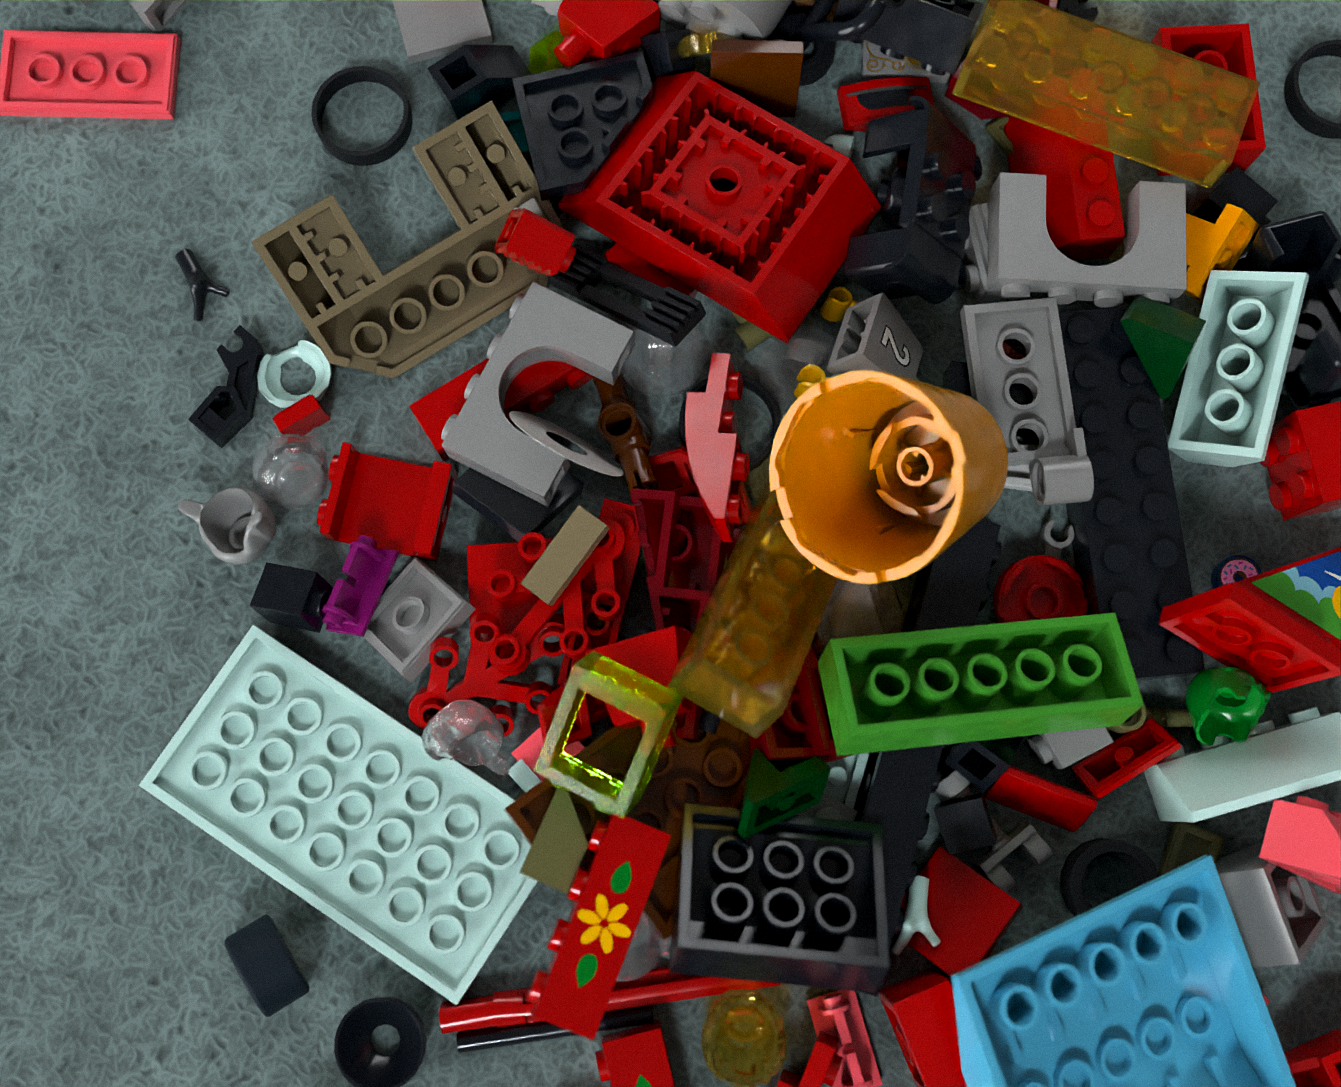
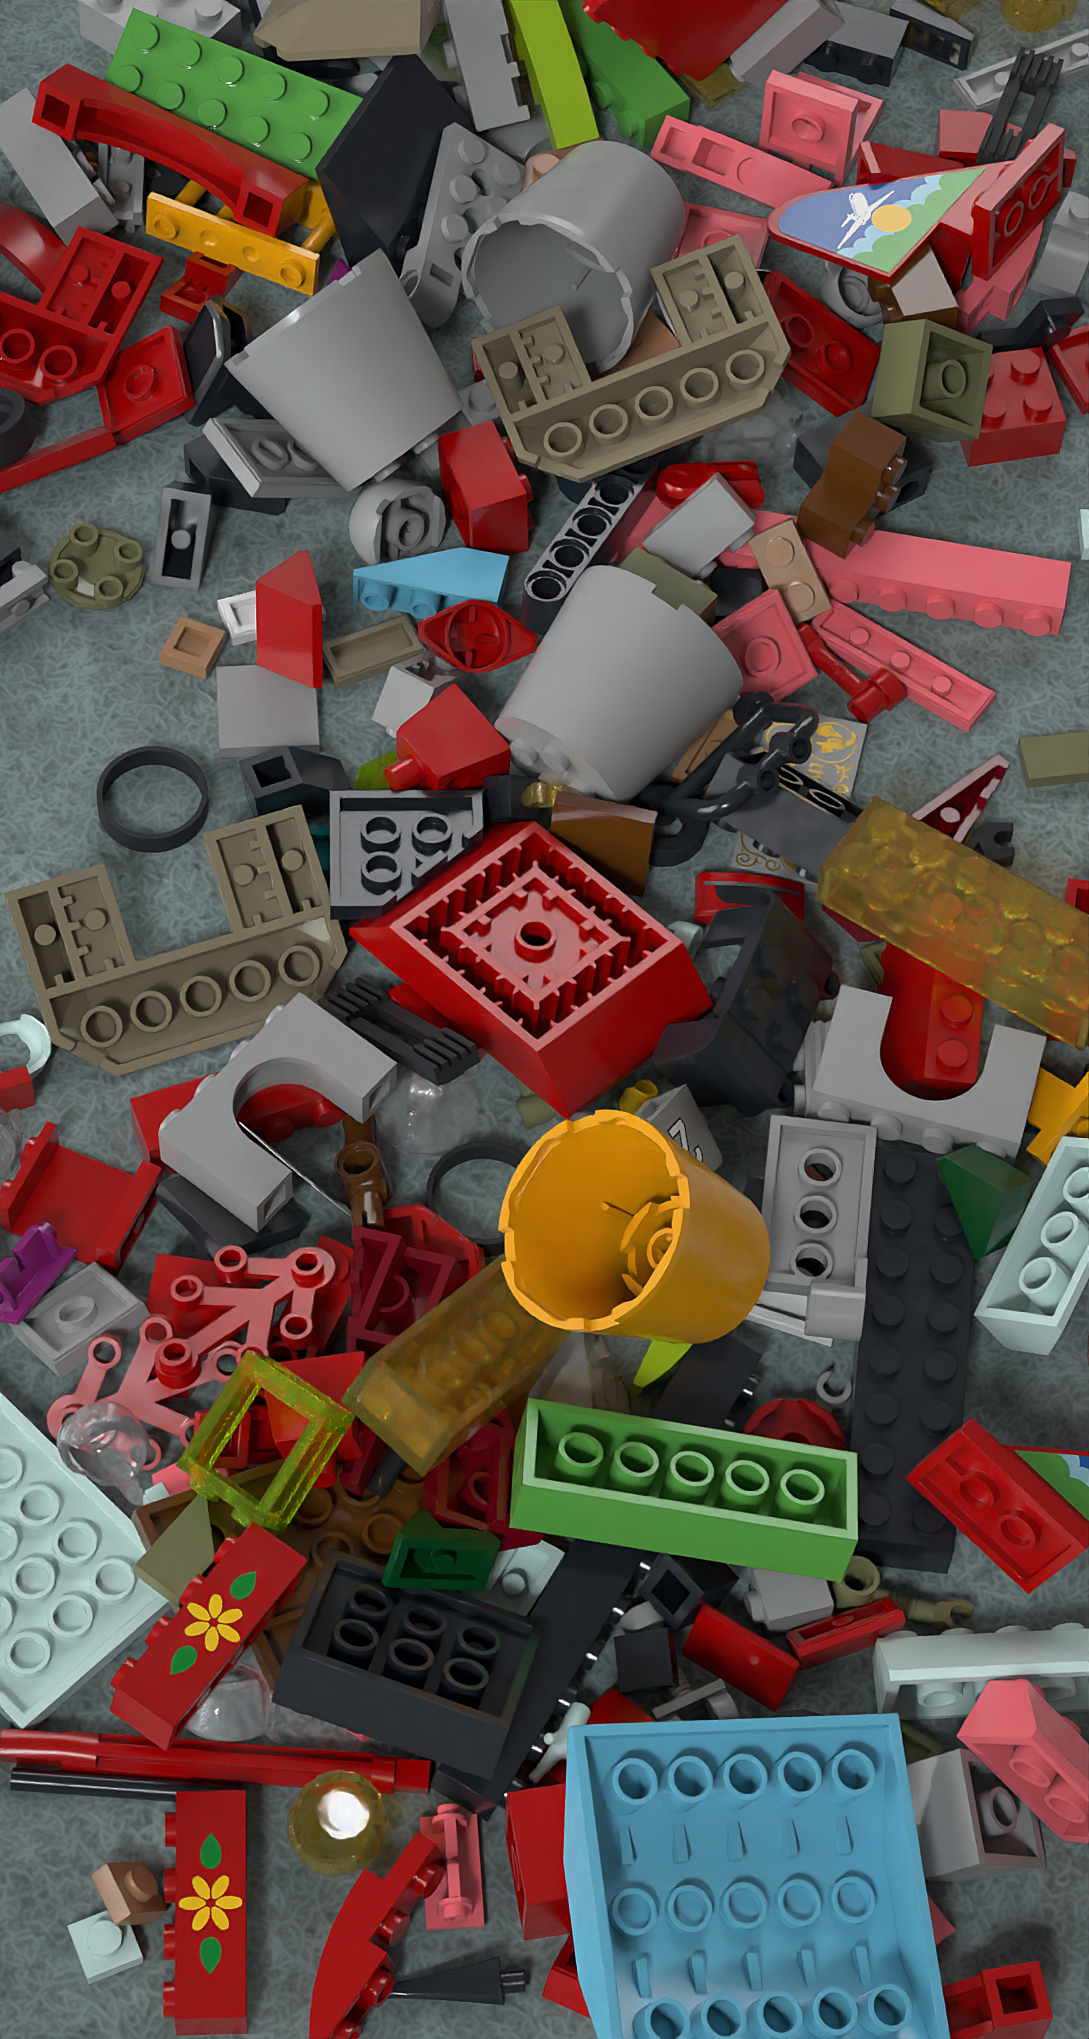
camera: 10 degrees right, 20 degrees down
(536, 243) = (313, 958): red brick -> none
(565, 555) = (264, 1272): dark tan piece -> none
(715, 446) = (456, 1196): slope -> none
(1225, 703) = (969, 1586): green hair -> none

